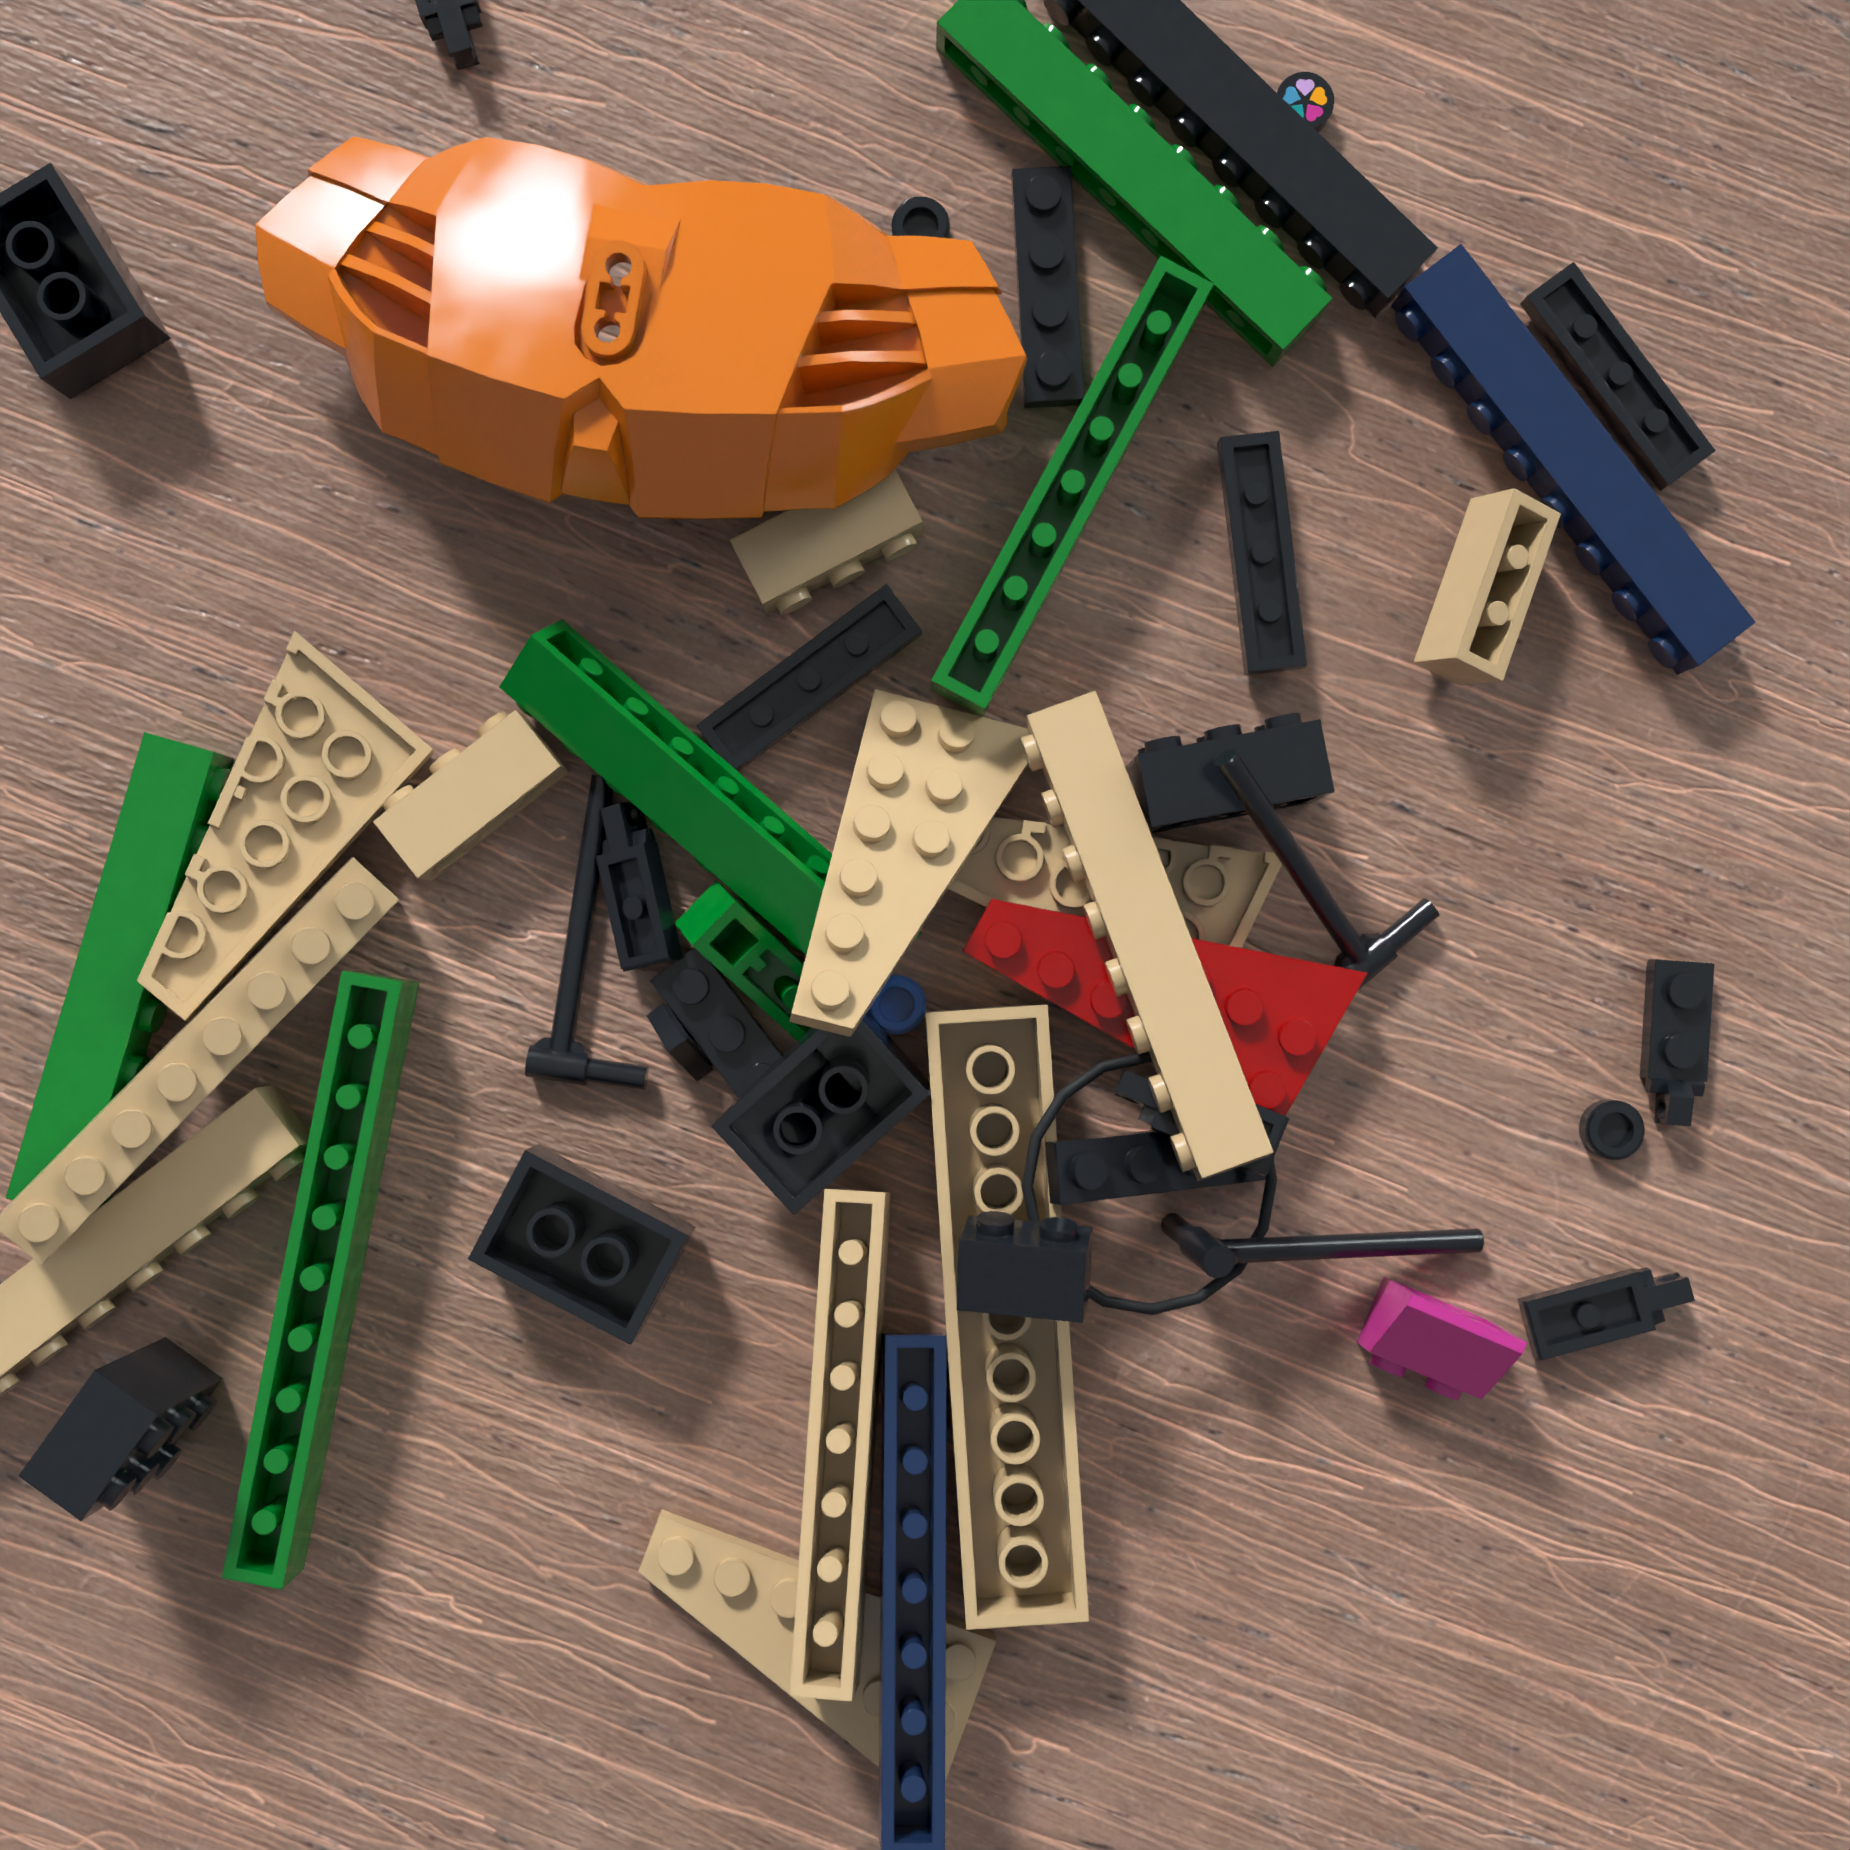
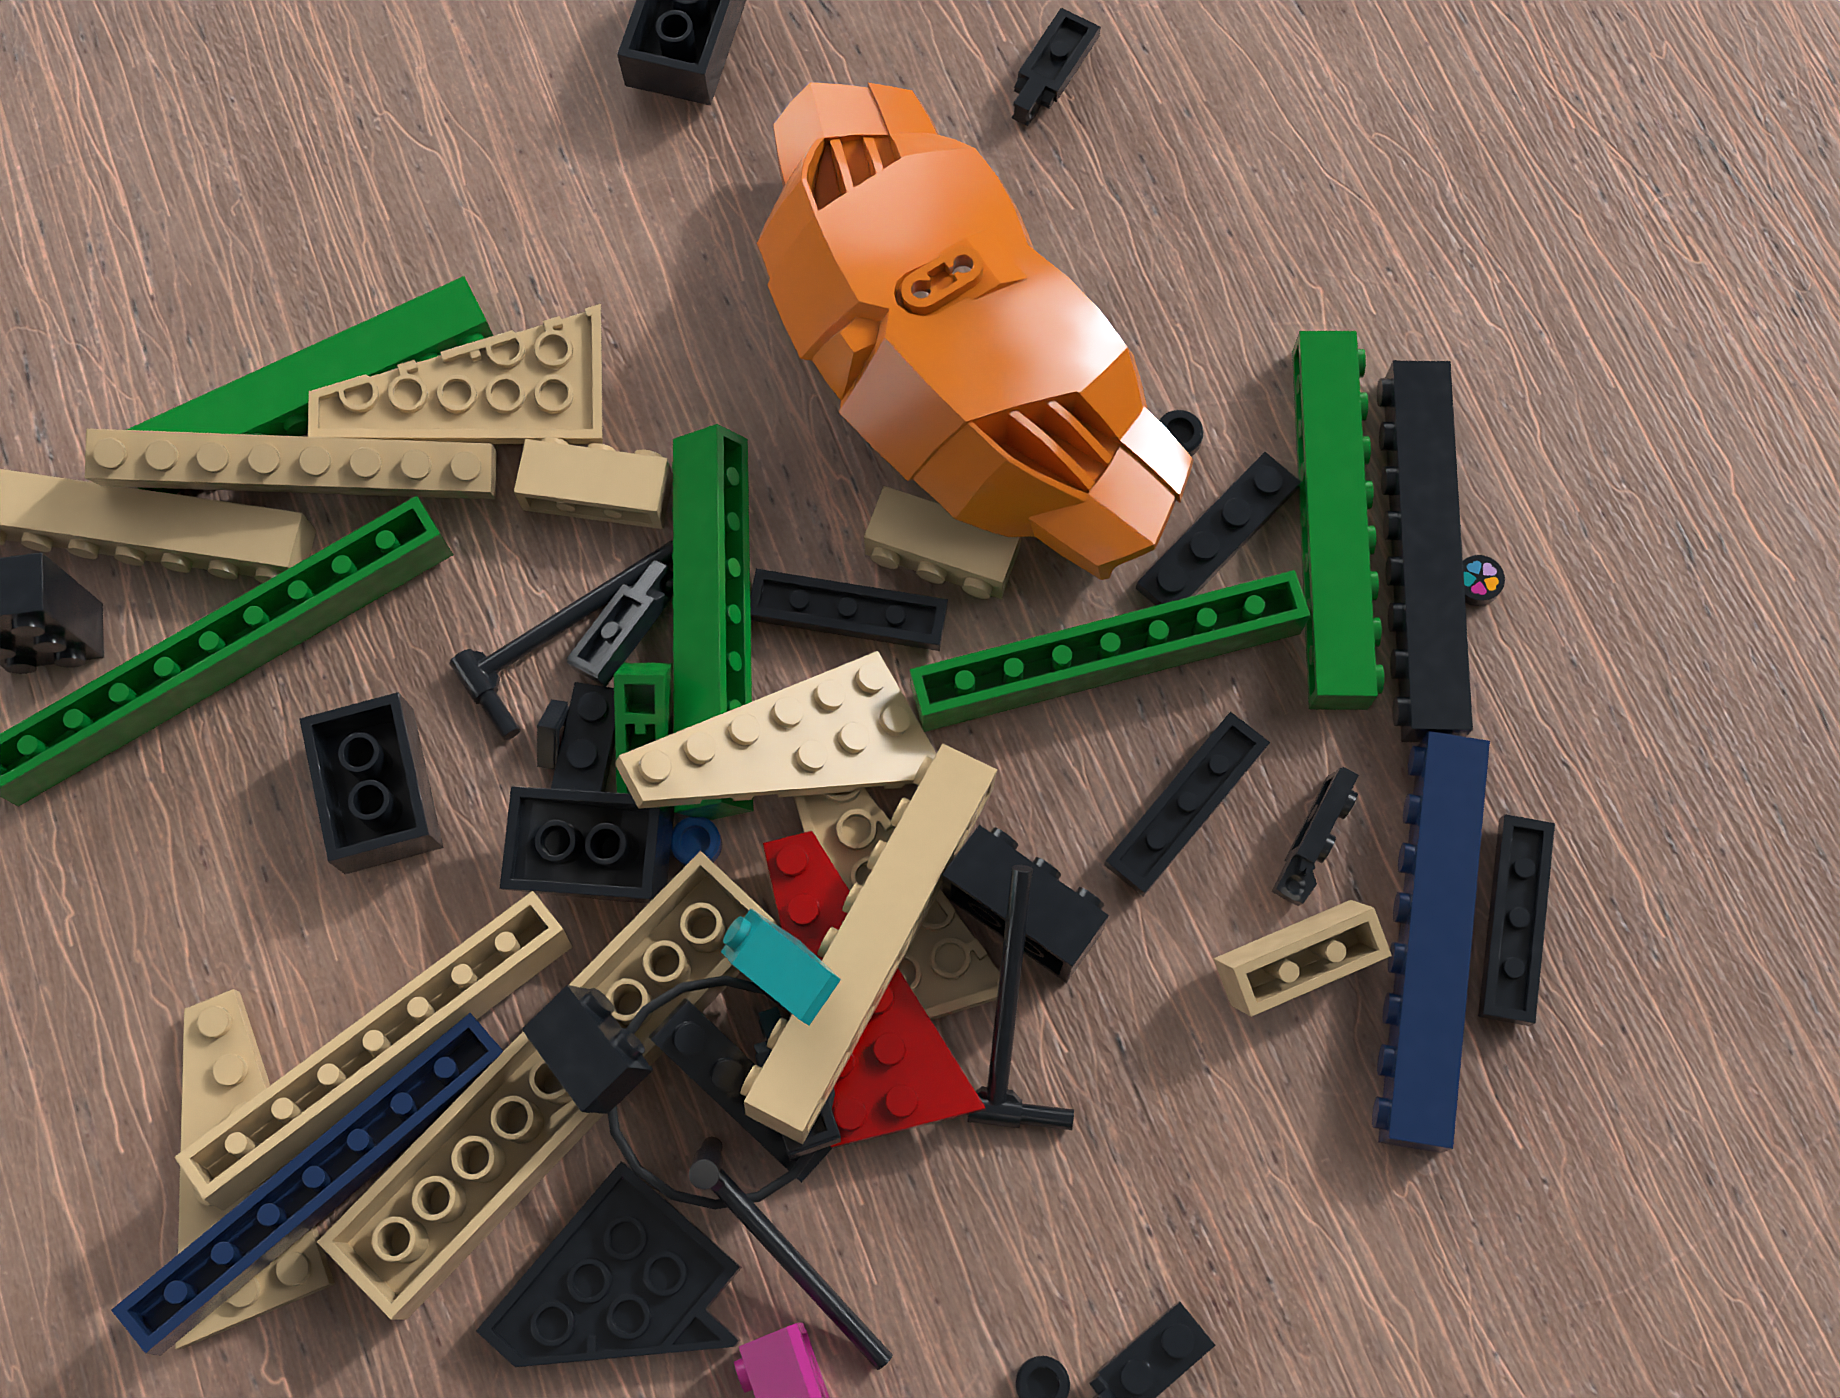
camera: 55 degrees right, 15 degrees down
(1112, 1040) = (779, 965): none -> teal slope
(1218, 1404) = (616, 1284): none -> black wing
(1391, 472) = (1314, 838): none -> black hinge

